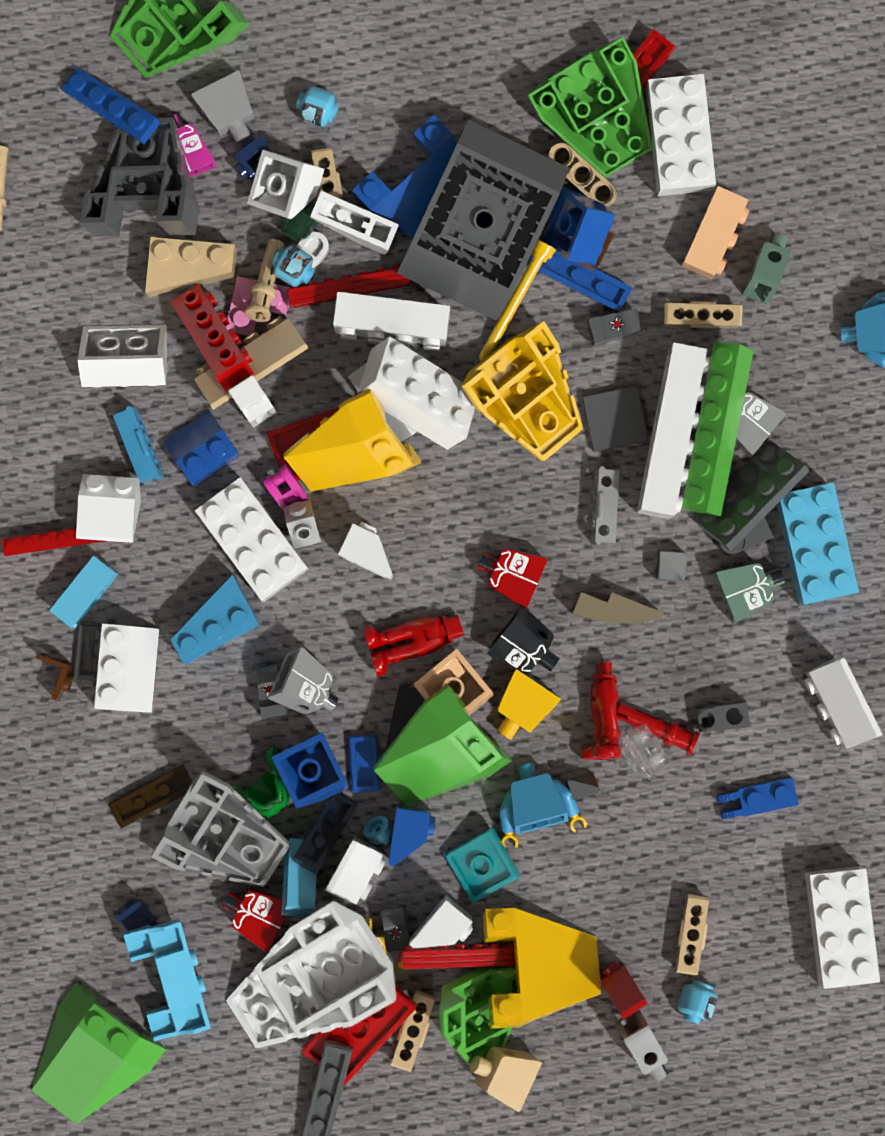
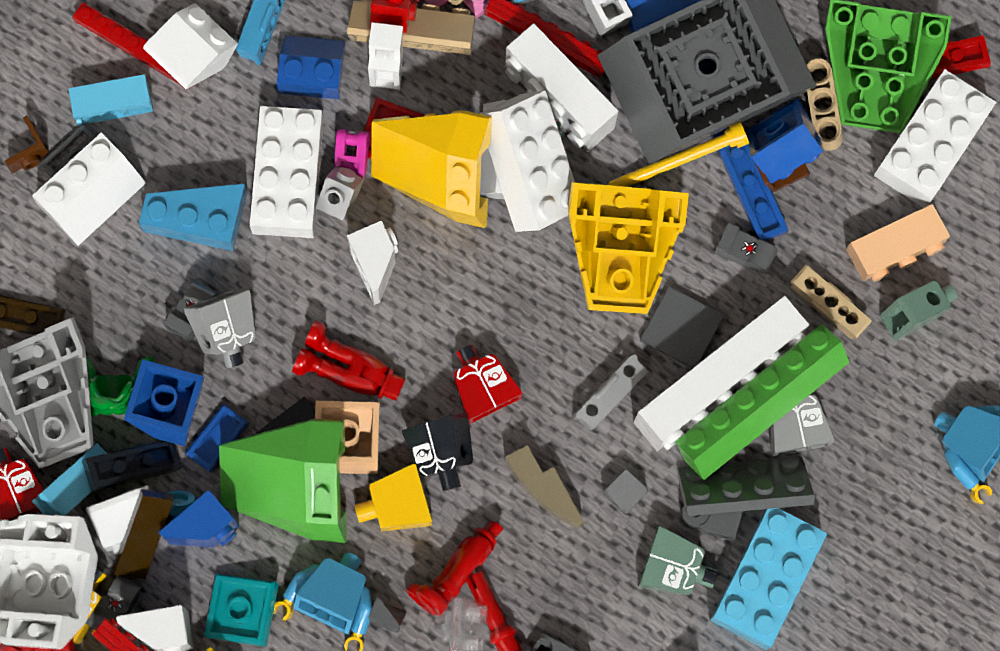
camera: 35 degrees right, 10 degrees down
(375, 872) = (143, 534): none -> dark brown tile

